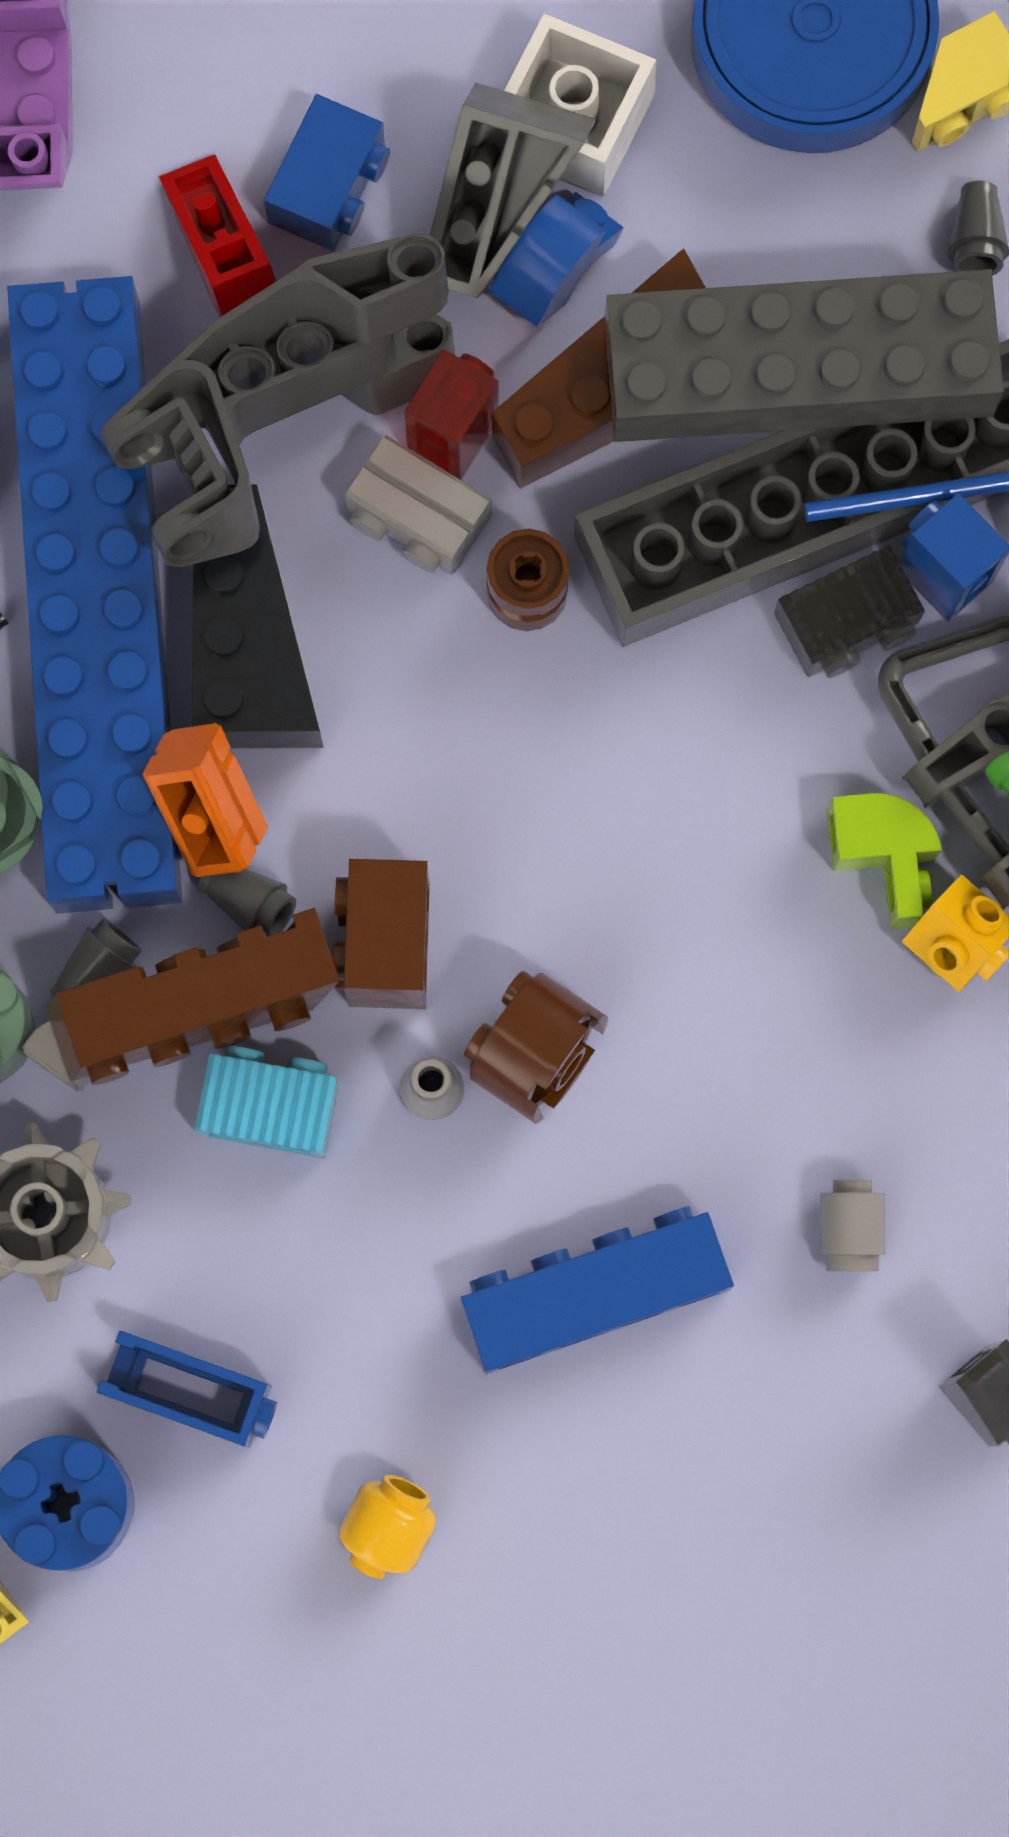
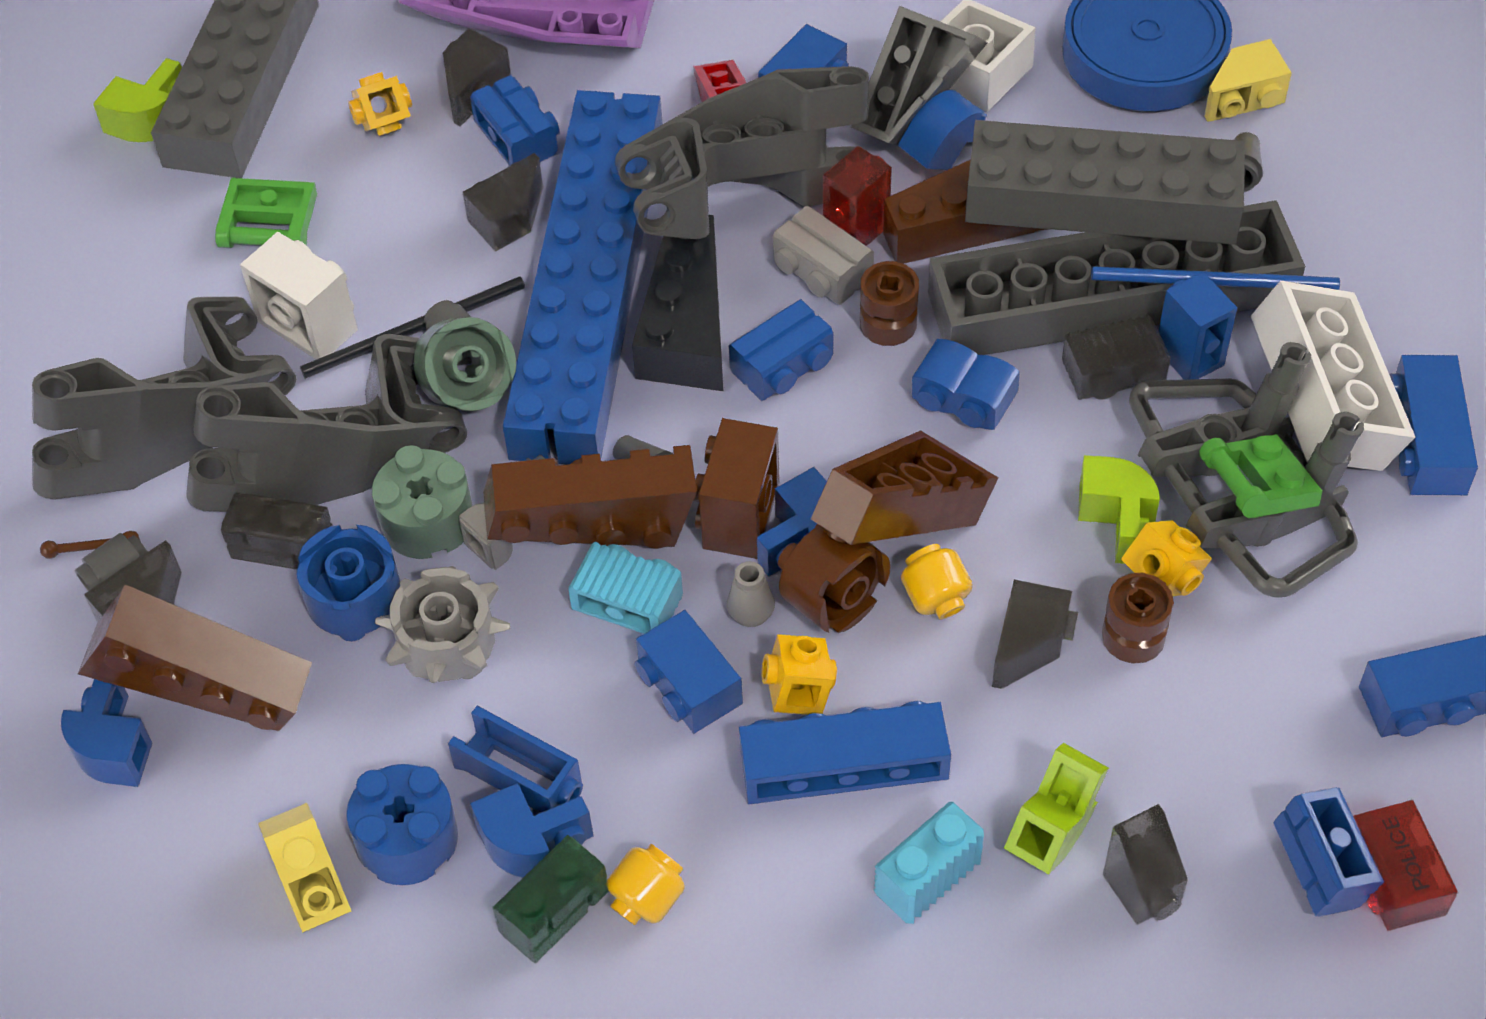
camera: 15 degrees right, 25 degrees down
(205, 800) = (630, 386): orange brick -> none
(208, 1491) = (519, 839): none -> blue brick
(276, 1571) = (551, 898): none -> clear green brick
(374, 1213) = (688, 672): none -> blue brick
(395, 681) = (781, 350): none -> blue brick
(490, 946) = (794, 508): none -> blue brick
(519, 1196) = (799, 674): none -> yellow brick
(613, 912) = (903, 492): none -> reddish brown wedge
(652, 693) = (965, 384): none -> blue brick
(668, 1017) = (936, 581): none -> yellow head
(730, 1428) = (929, 862): none -> medium azure brick
(803, 1066) = (1032, 630): none -> clear smoke slope
(852, 1226) = (1046, 732): light grey brick -> none
(874, 1333) = (1058, 810): none -> lime brick
(935, 1029) = (1137, 617): none -> reddish brown wheel

